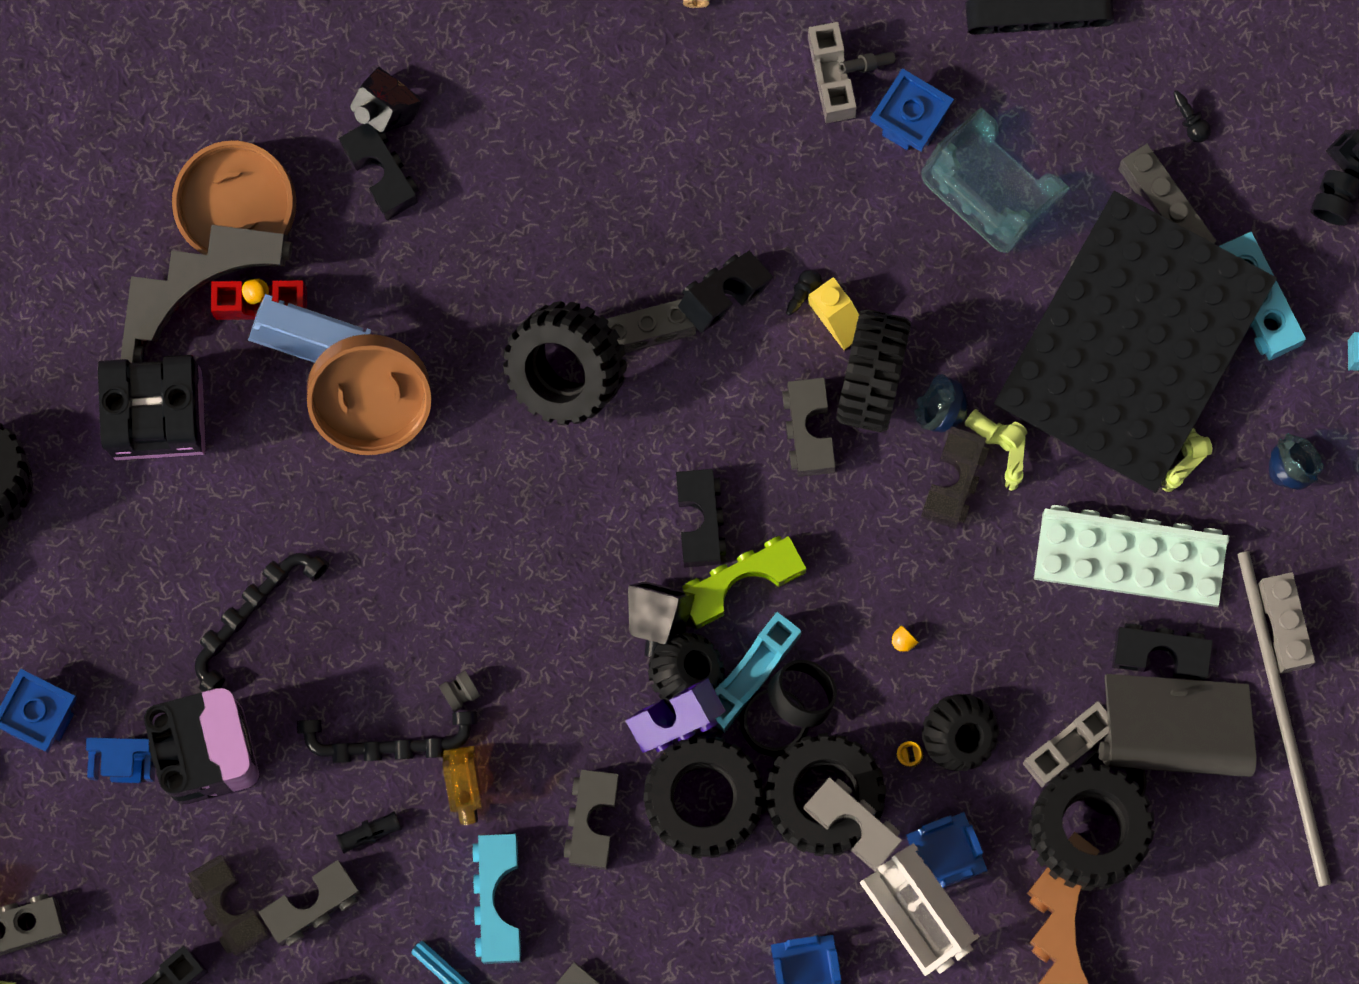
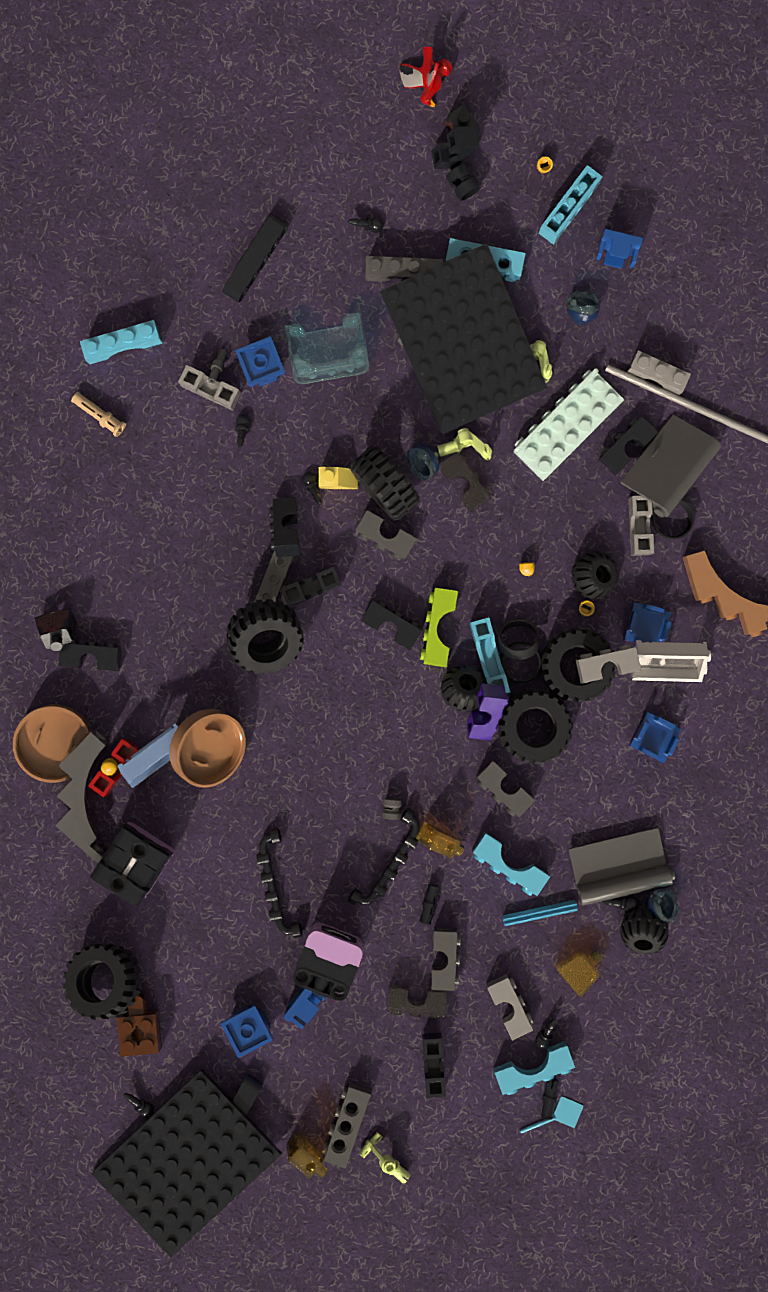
camera: 55 degrees left, 10 degrees up
(657, 613) = (426, 682): torso -> none
(684, 388) = (311, 587): none -> black arch
(819, 147) = (243, 423): none -> black bar
(1119, 798) = (708, 526): black tyre -> none

